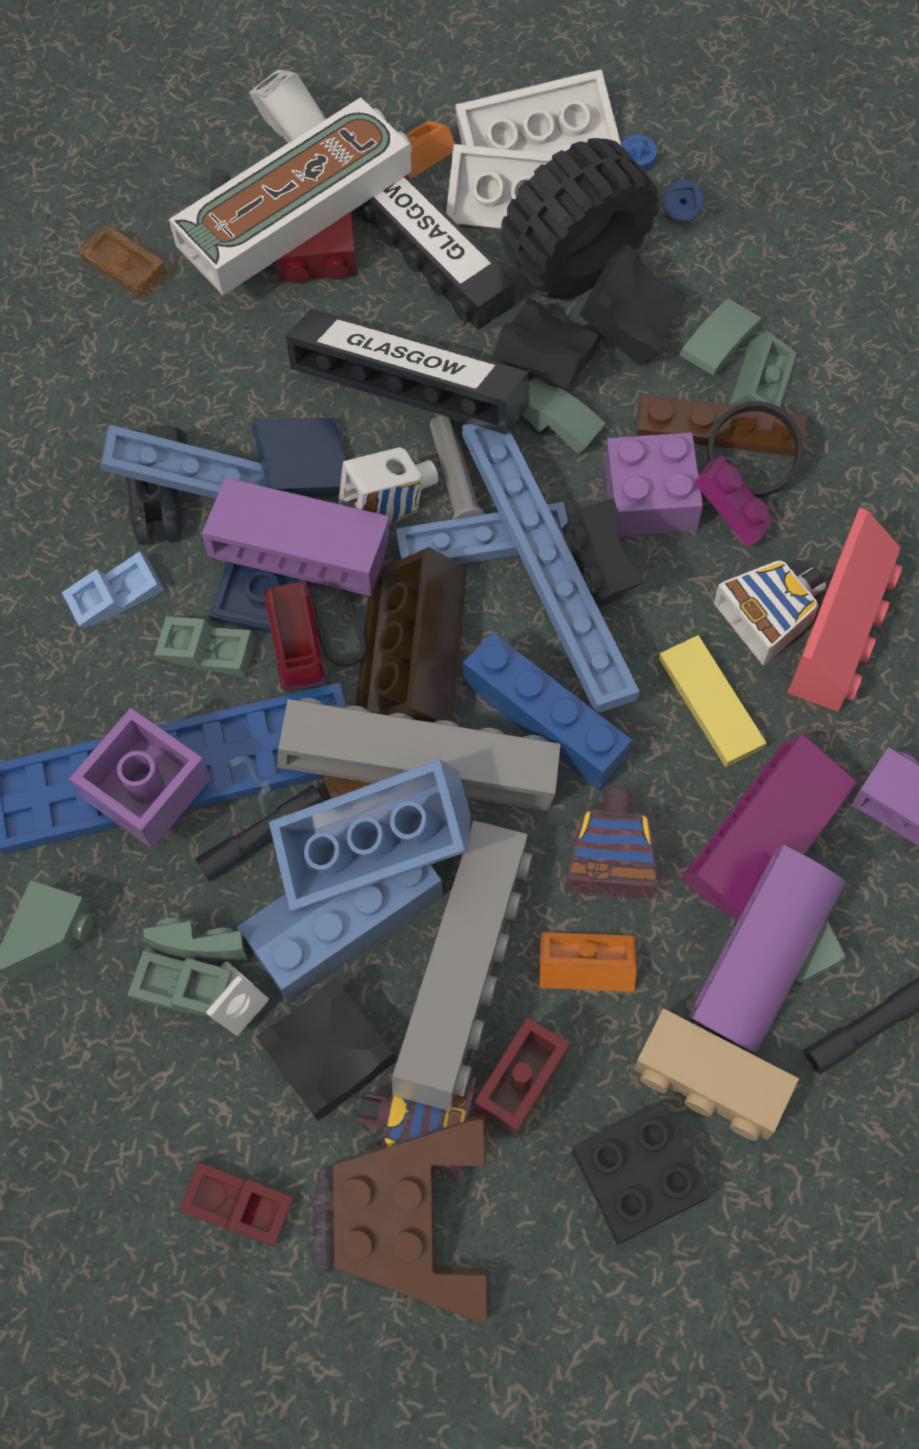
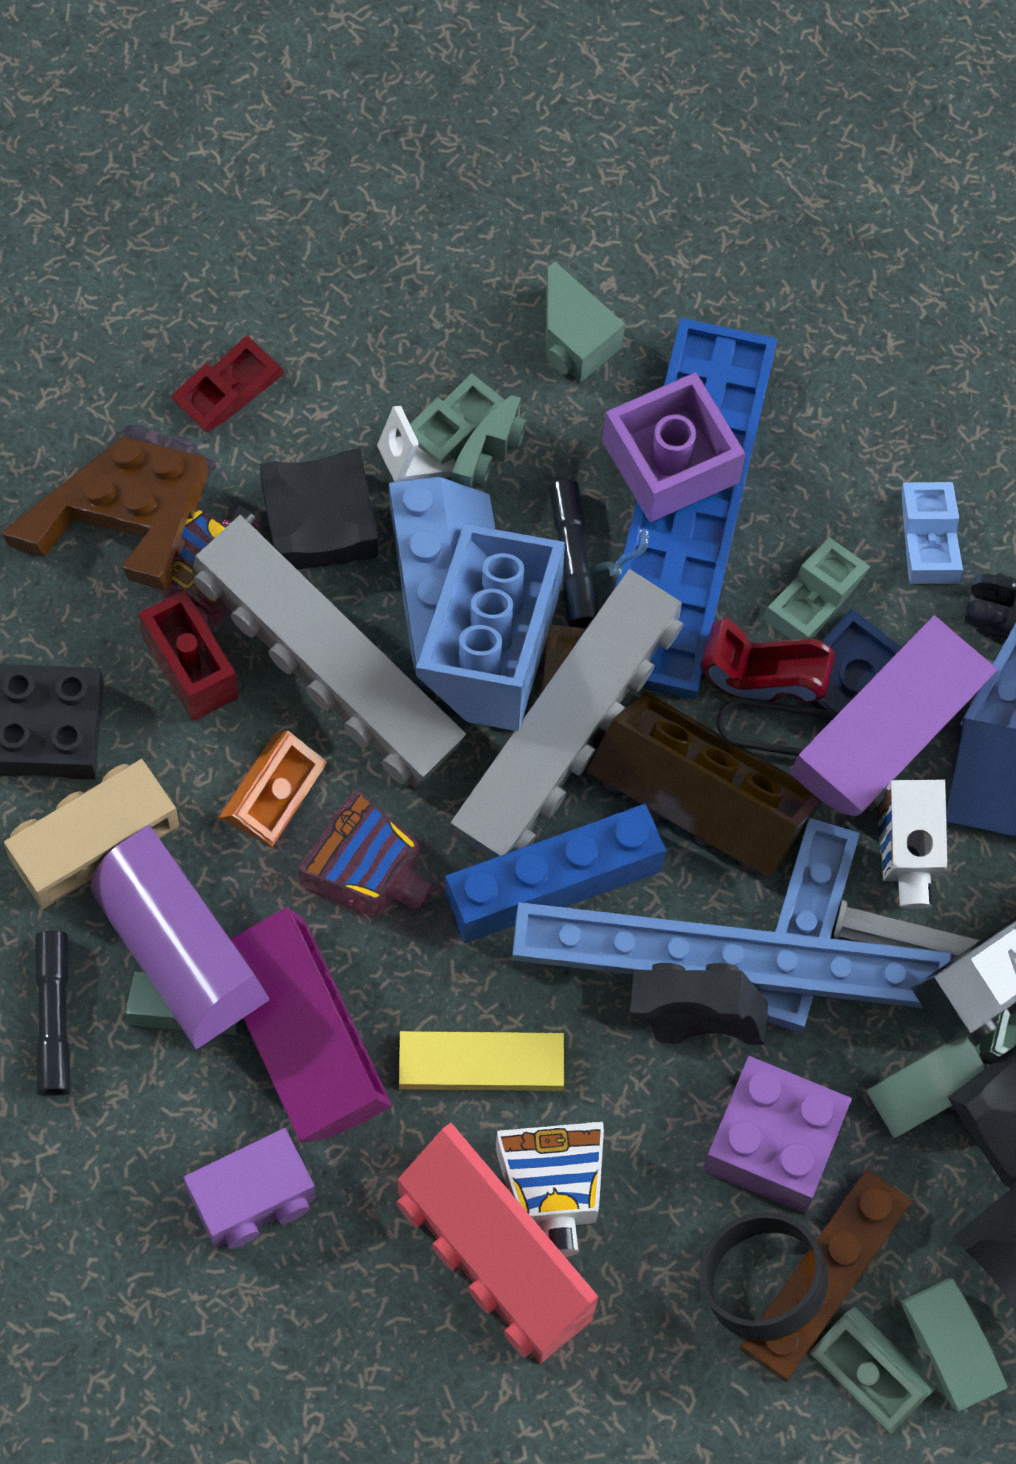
camera: 110 degrees right, 0 degrees up
(734, 500) = (704, 1207): magenta plate -> none

